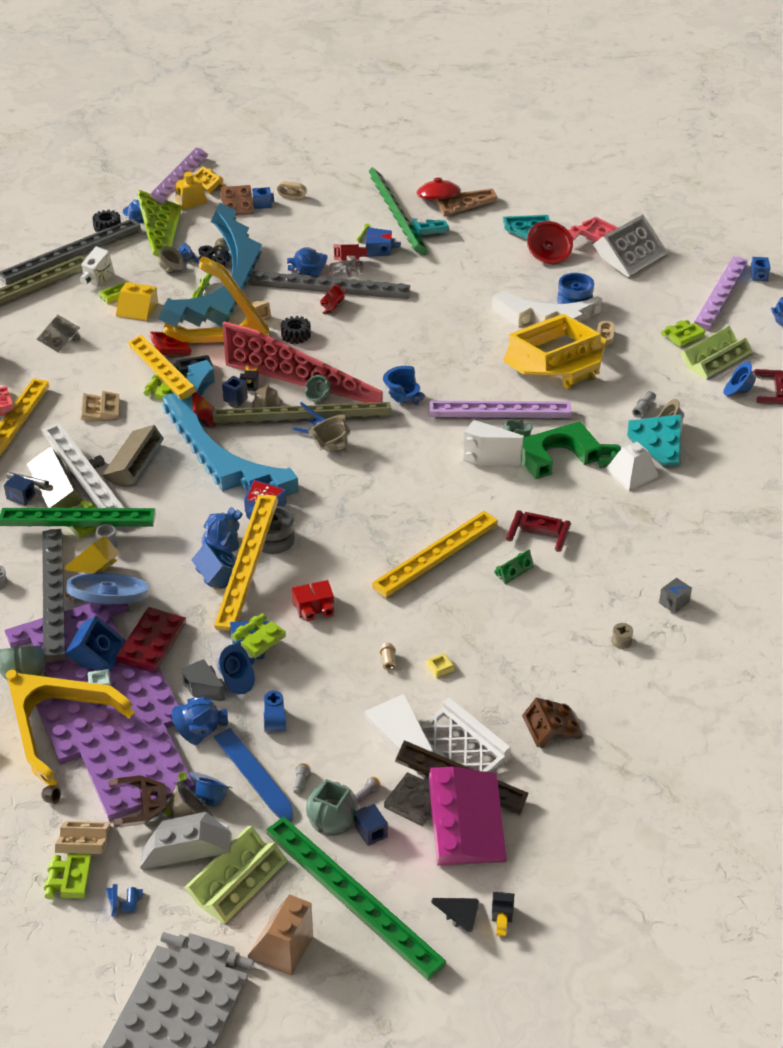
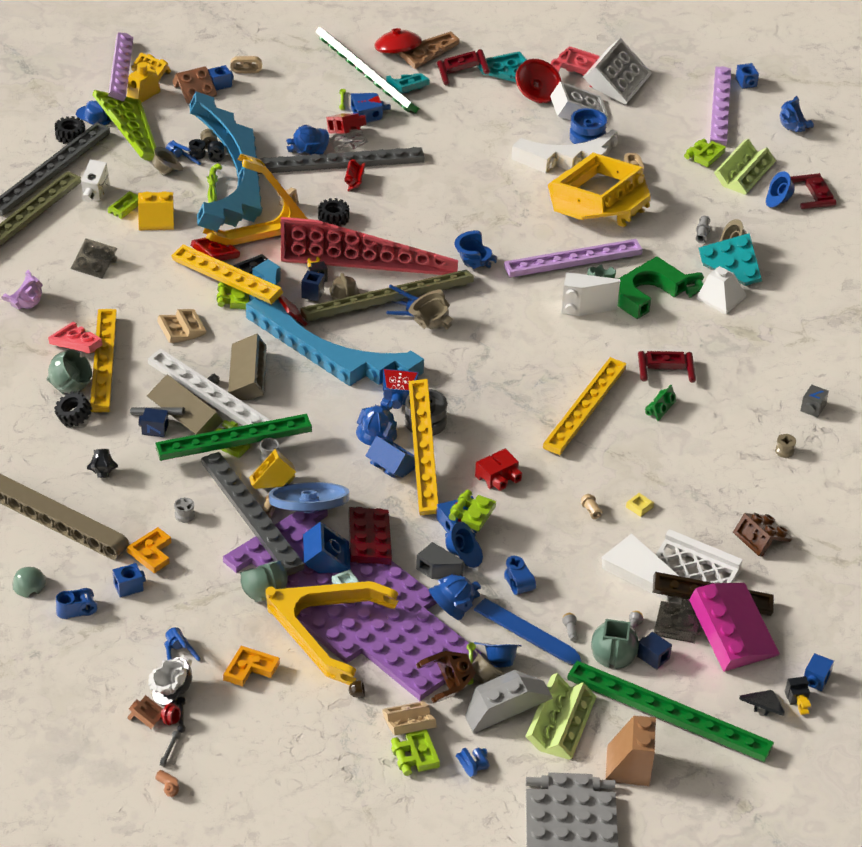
camera: 20 degrees left, 0 degrees up
(317, 388) = (391, 268): sand green hair -> none
(487, 216) = (462, 62): none -> dark red plate
(535, 891) = (818, 671): none -> blue brick
(573, 261) = (571, 98): none -> white slope

